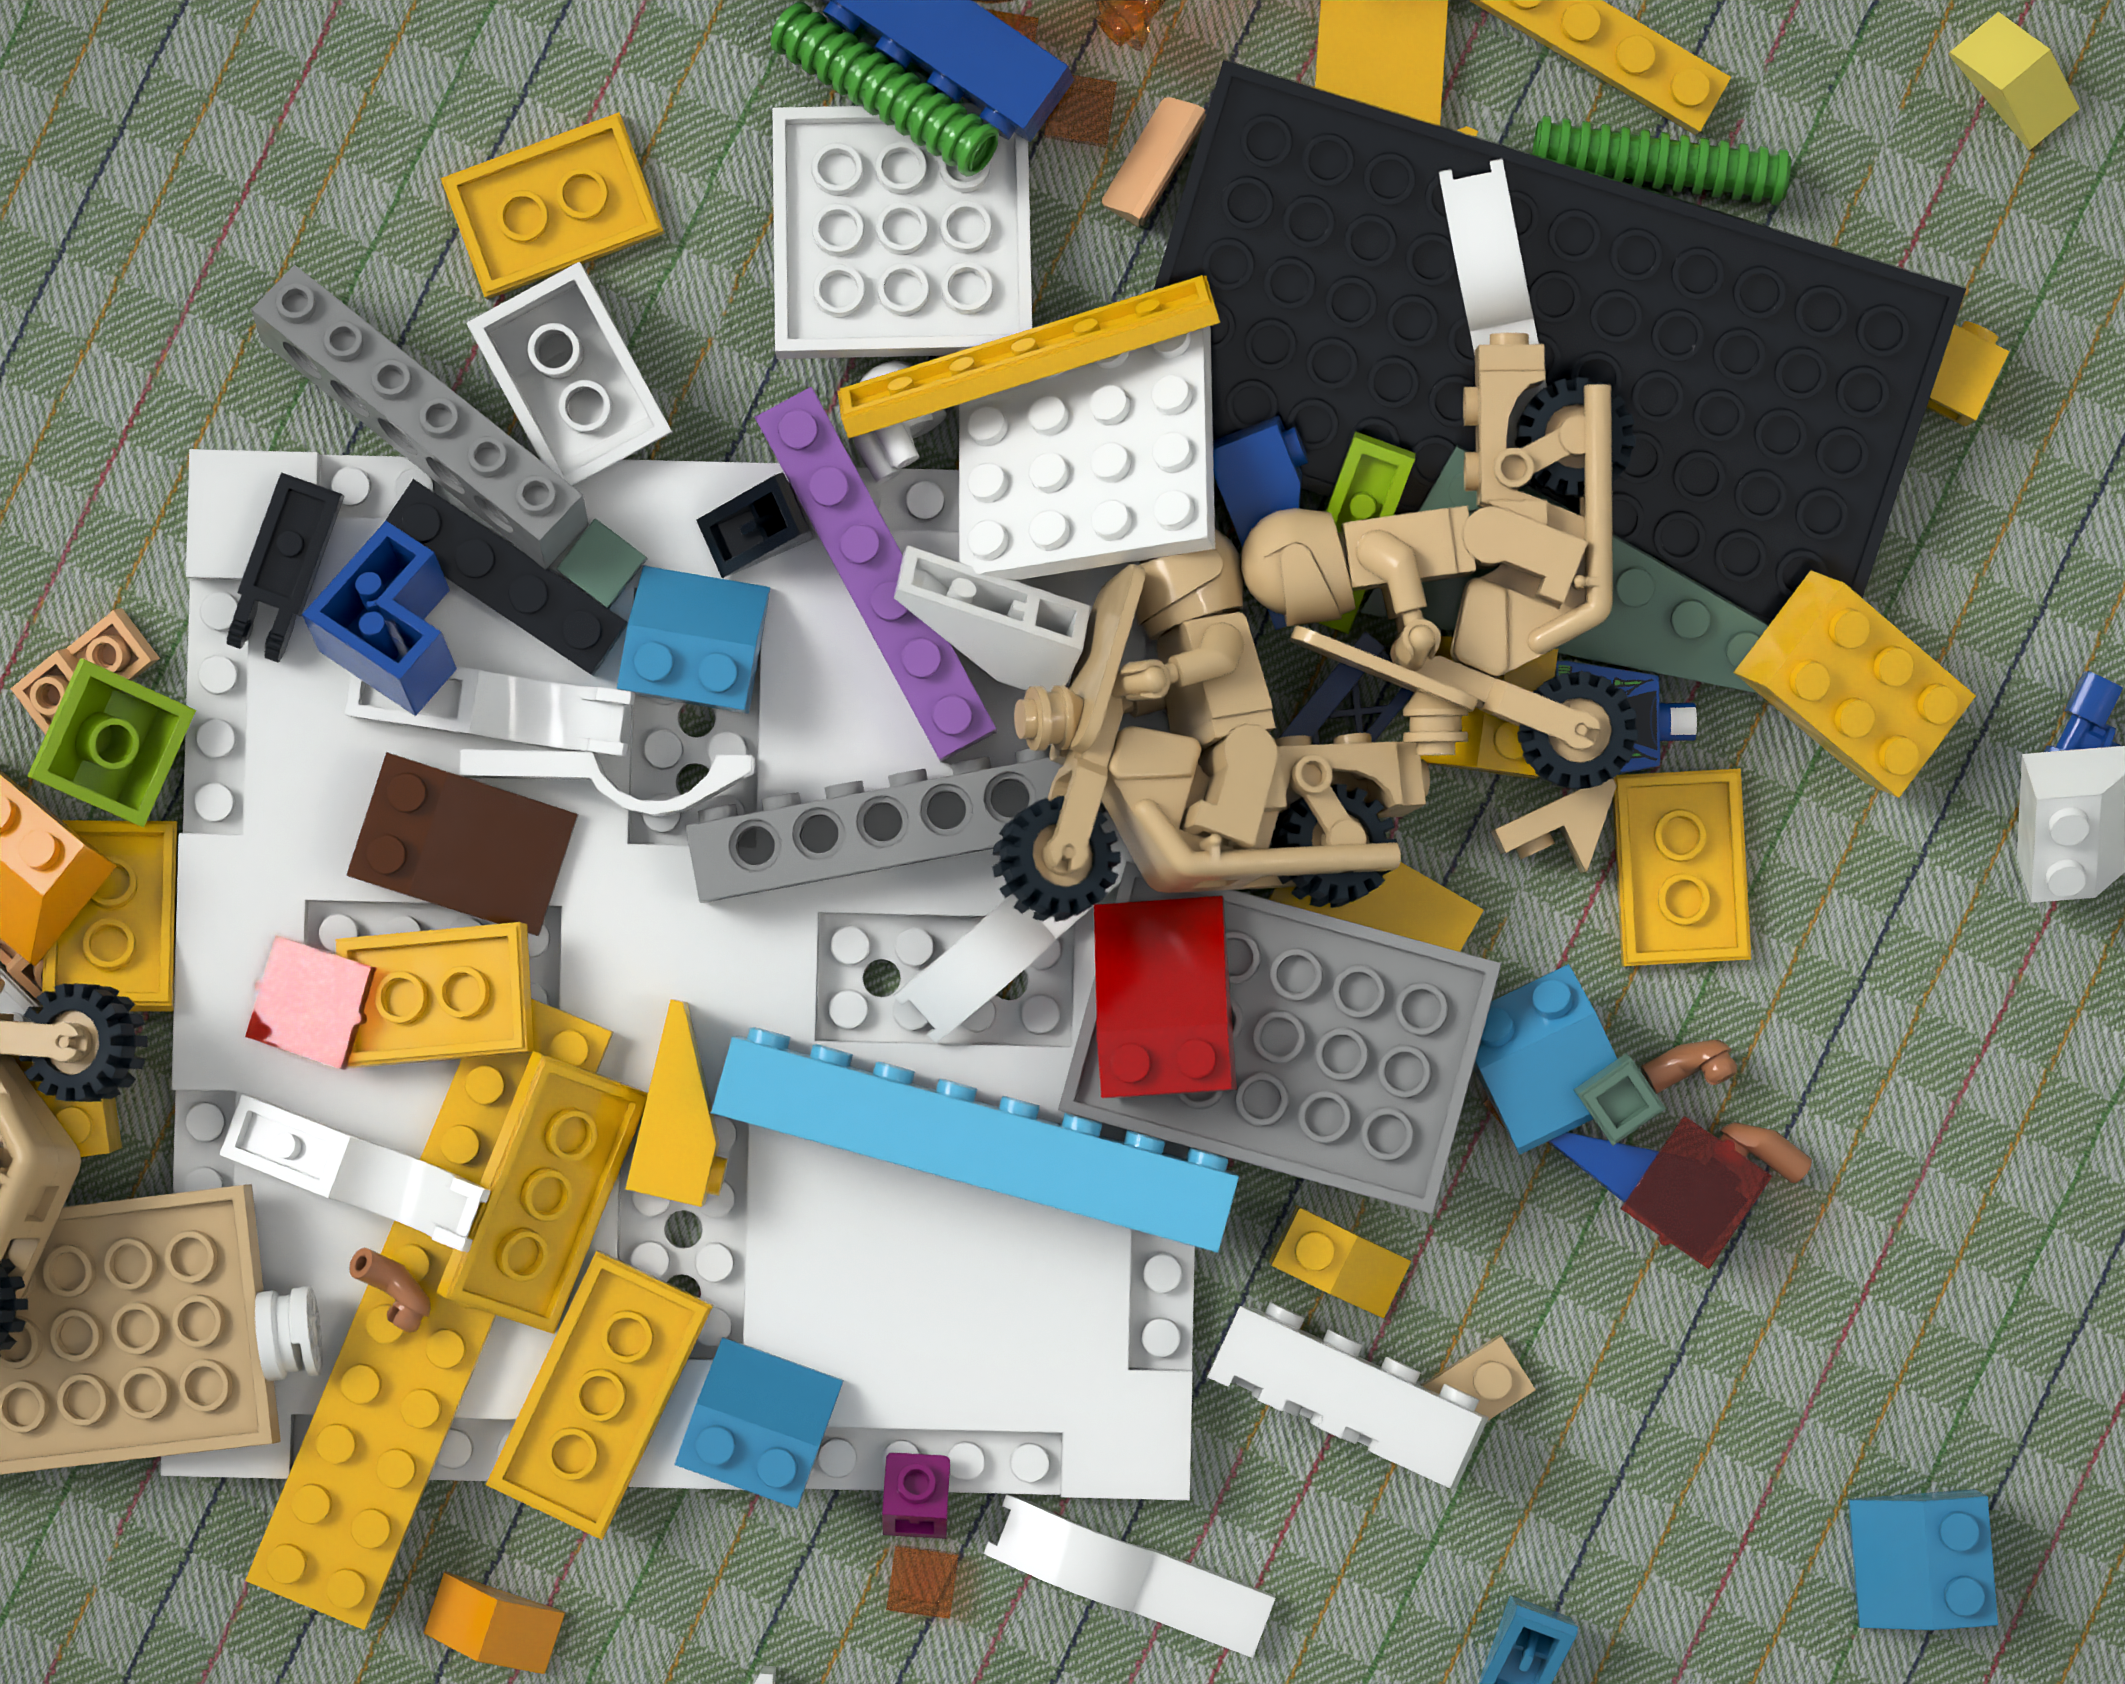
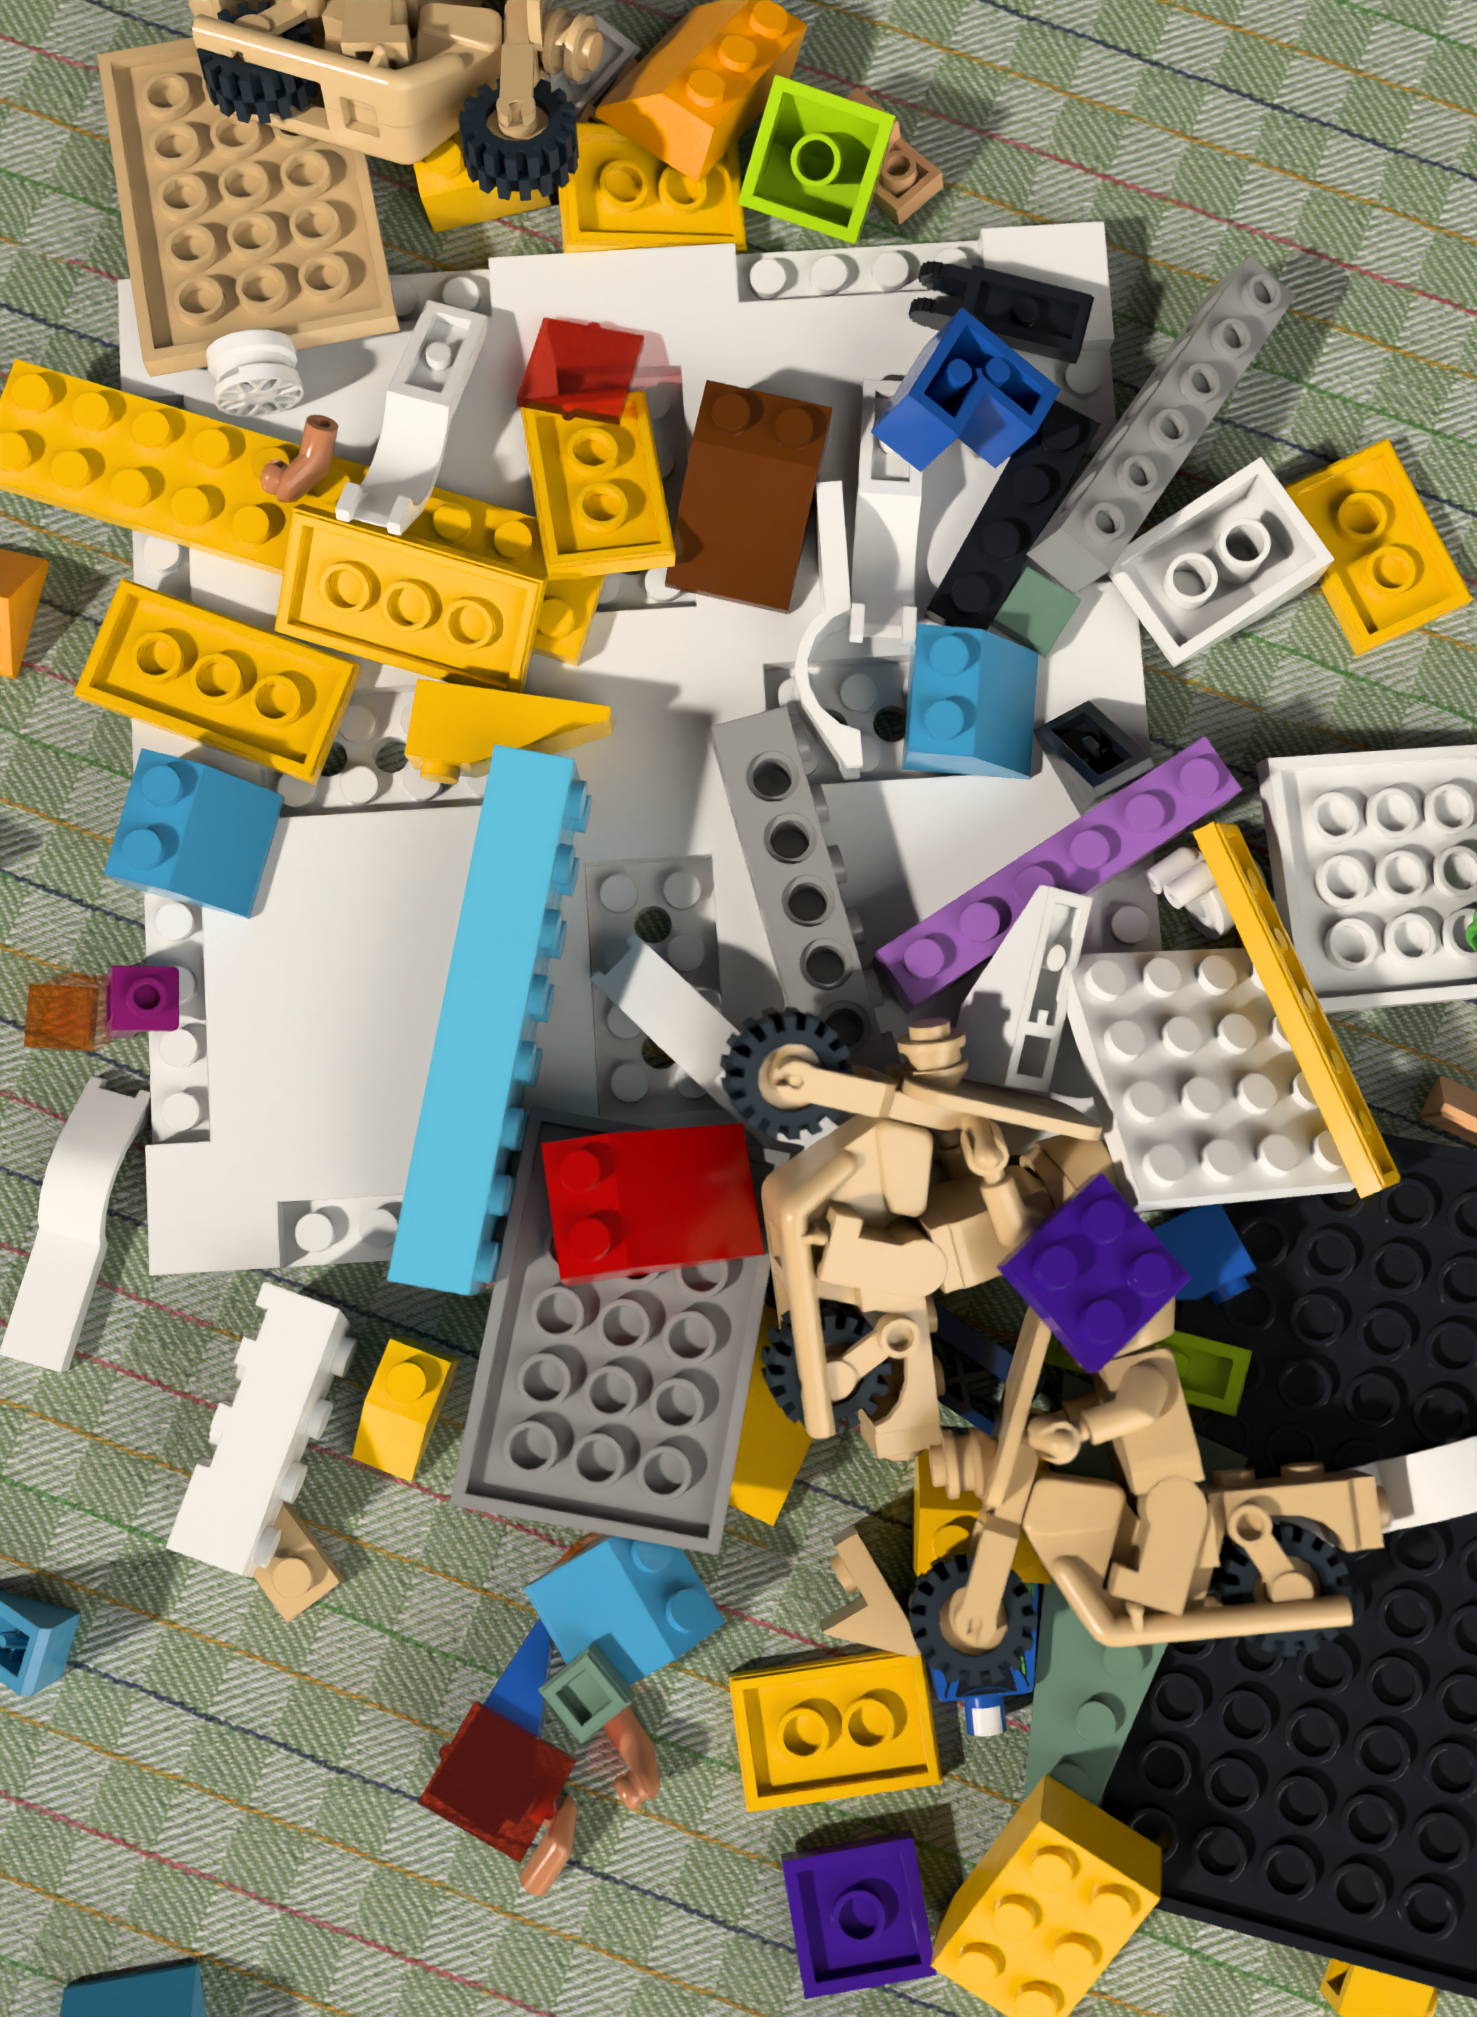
camera: 85 degrees right, 5 degrees down
(1268, 587) = (1094, 1273): none -> dark purple plate
(1853, 861) = (858, 1914): none -> dark purple plate

